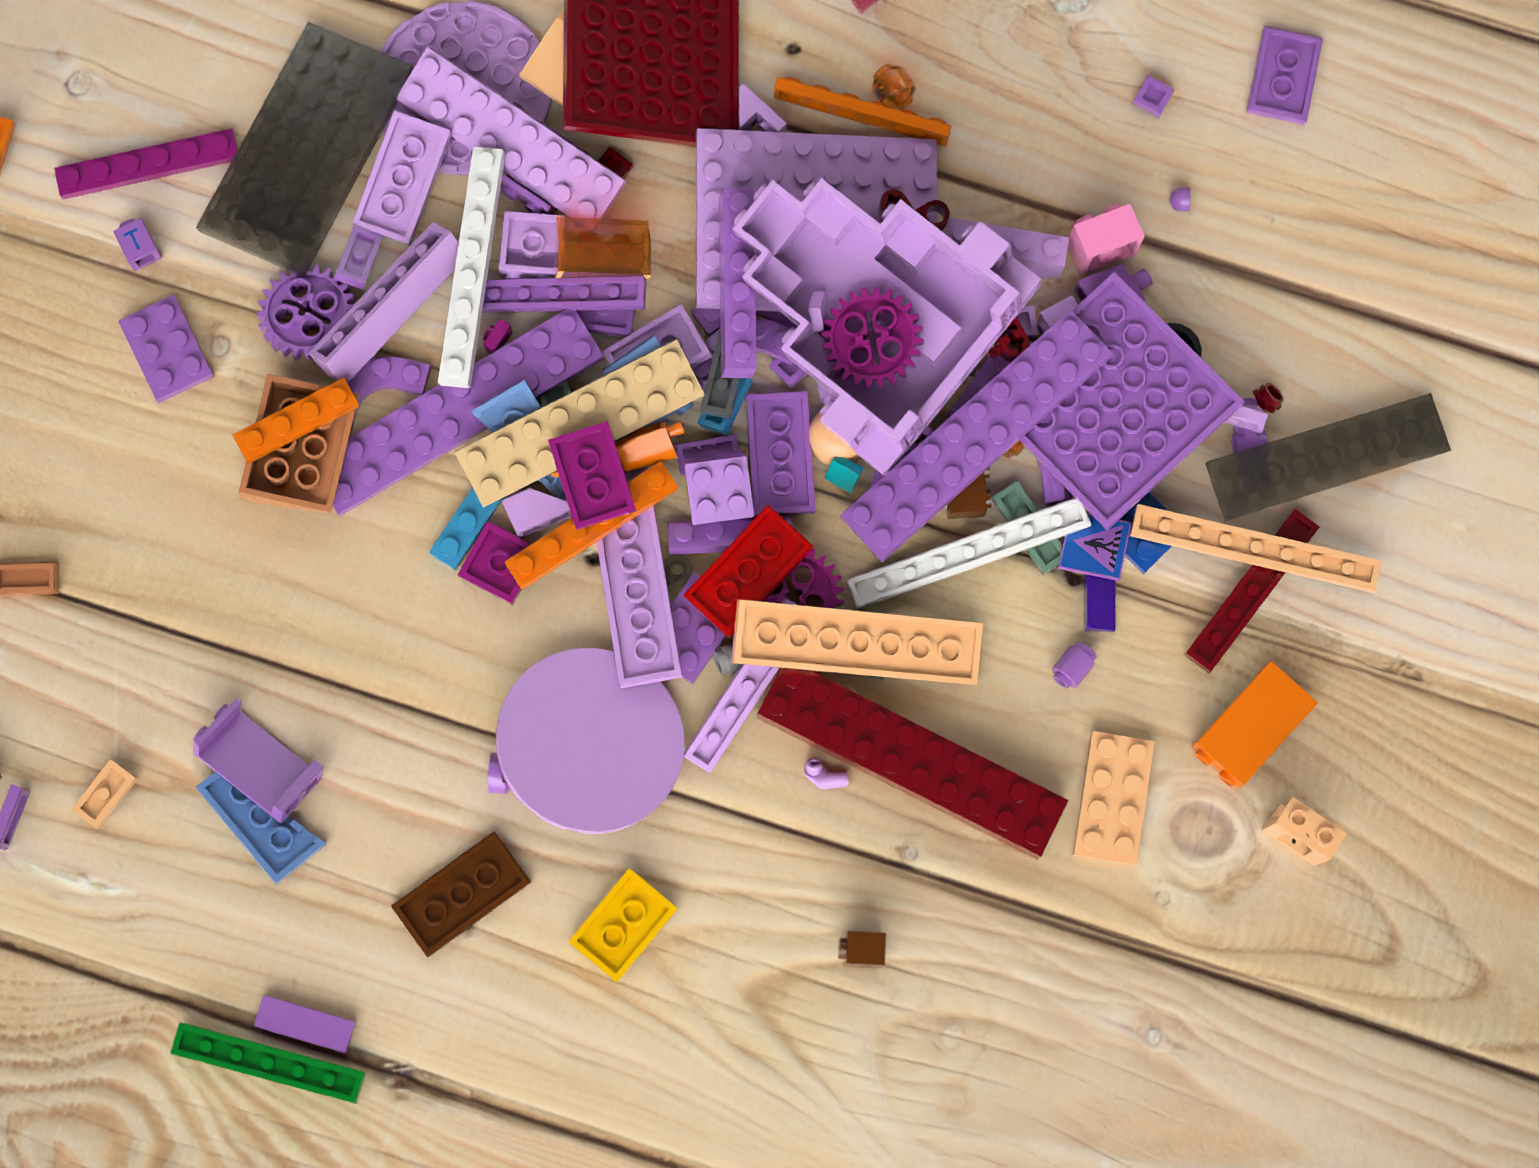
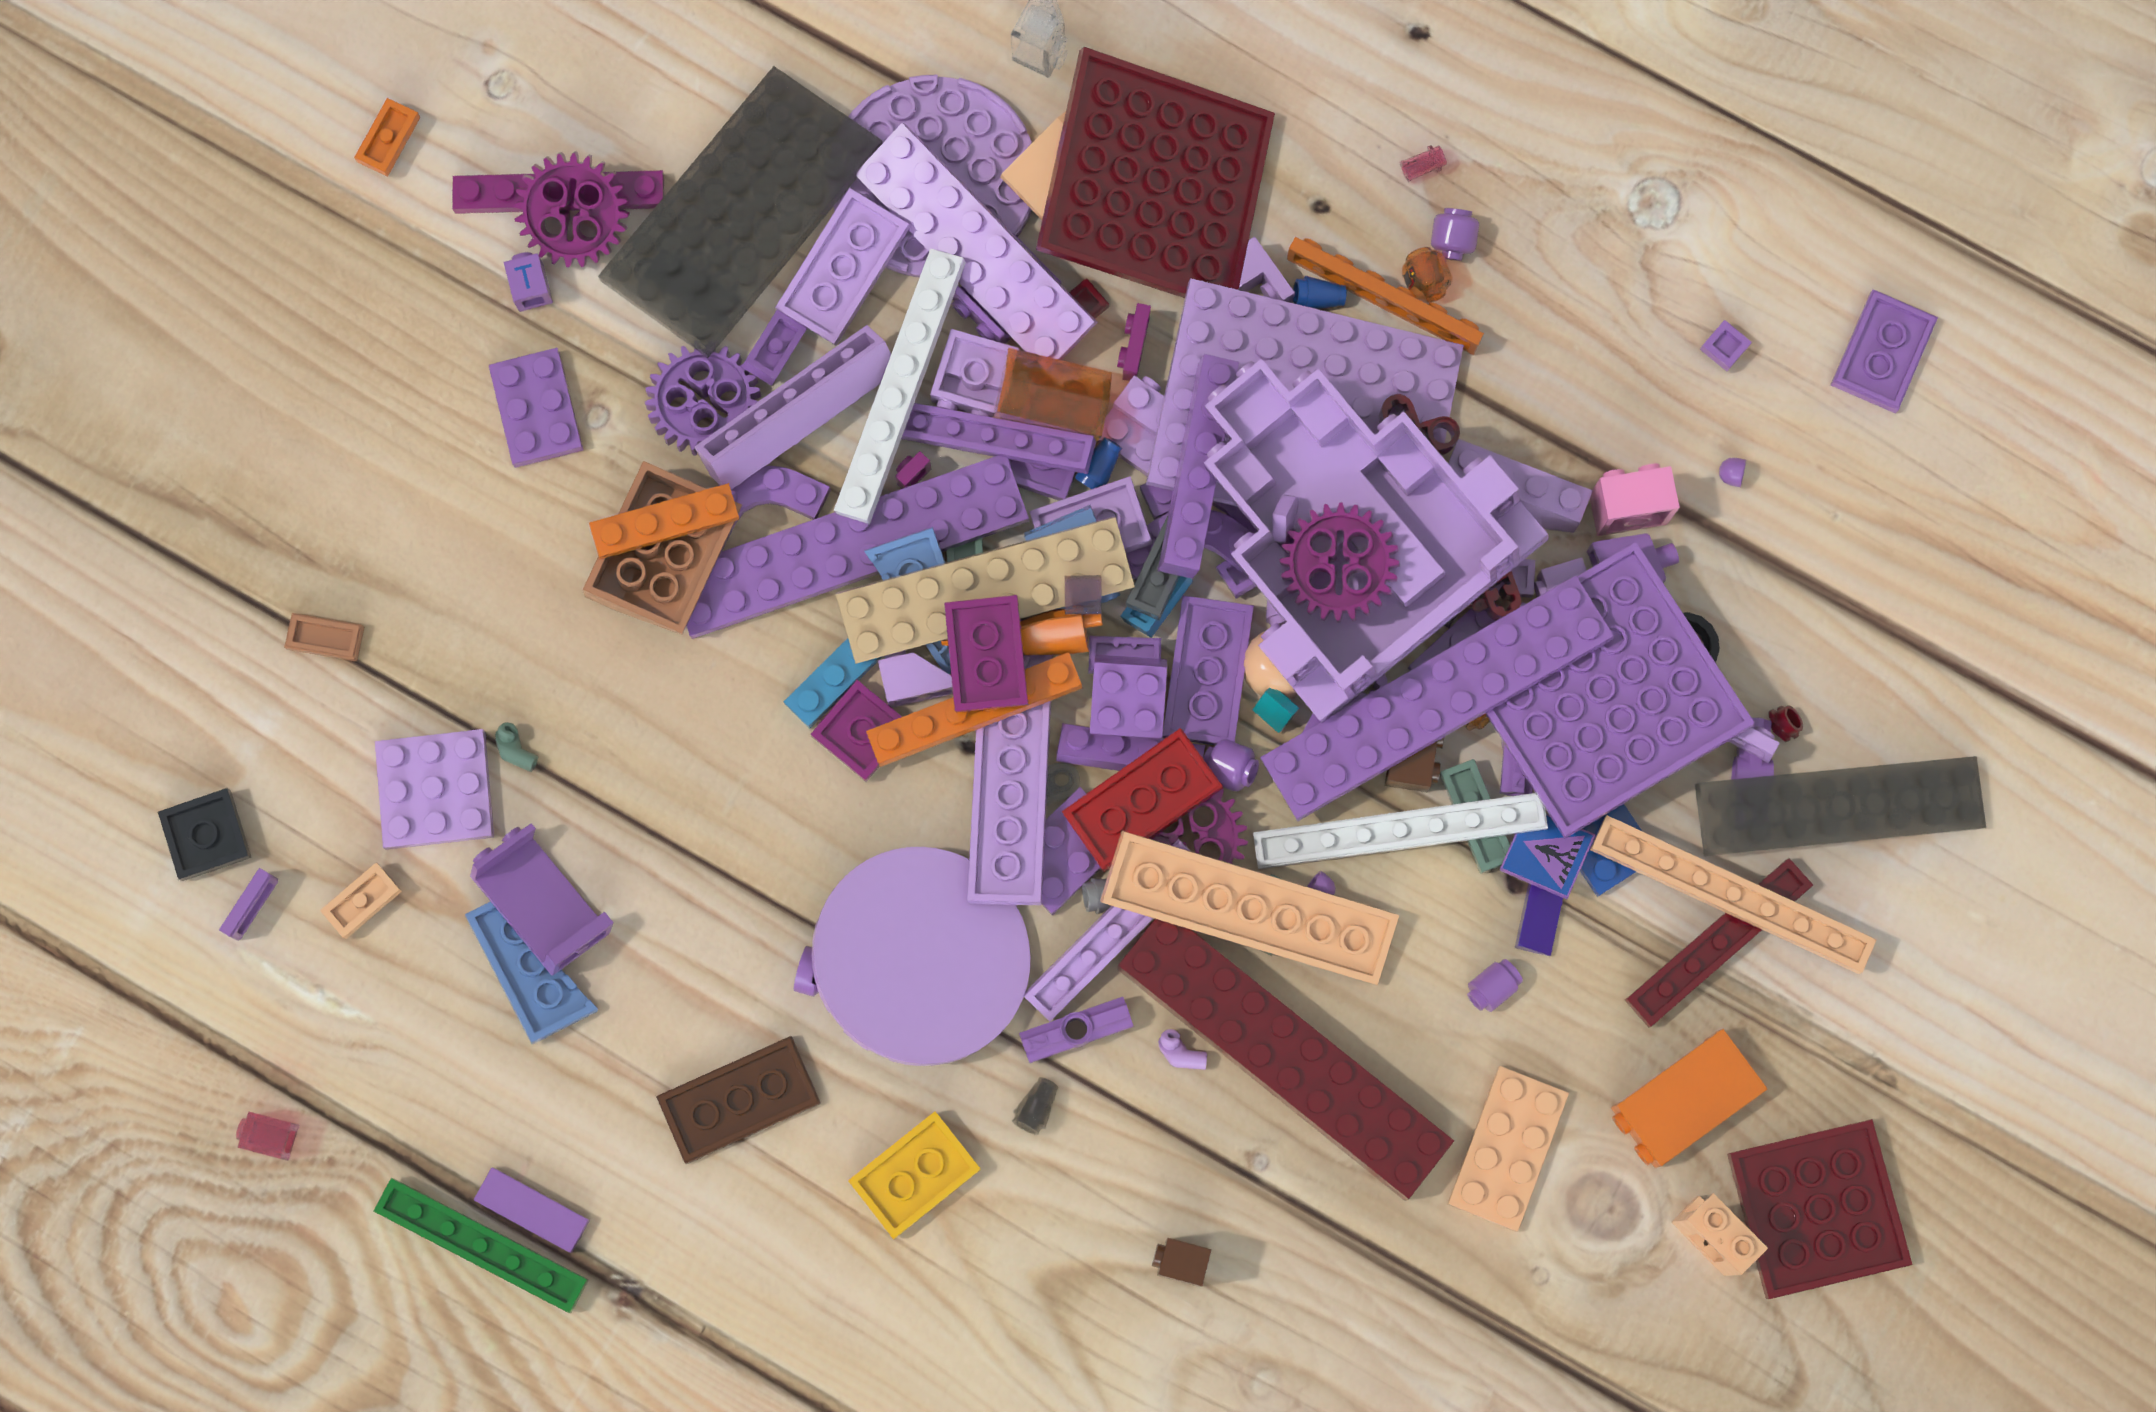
camera: 15 degrees right, 0 degrees up
(65, 1009) = (266, 1135): none -> clear pink brick
(147, 687) = (434, 789): none -> lavender plate
(190, 173) = (603, 213): none -> magenta gear
(205, 639) = (510, 747): none -> sand green arm
(655, 299) = (1101, 465): none -> blue cone
(661, 179) = (1136, 327): none -> magenta plate
(662, 409) = (1082, 594): none -> clear purple tile
(675, 259) = (1135, 421): none -> lavender plate
(713, 846) = (1036, 1106): none -> clear smoke cone
(751, 764) = (1052, 1037): none -> medium lavender piece
(806, 120) = (1318, 293): none -> blue cone
(817, 526) = (1232, 764): none -> medium lavender head
(909, 48) = (1455, 233): none -> medium lavender head
(913, 609) = (1323, 883): none -> medium lavender hinge
(1381, 793) = (1820, 1209): none -> dark red plate

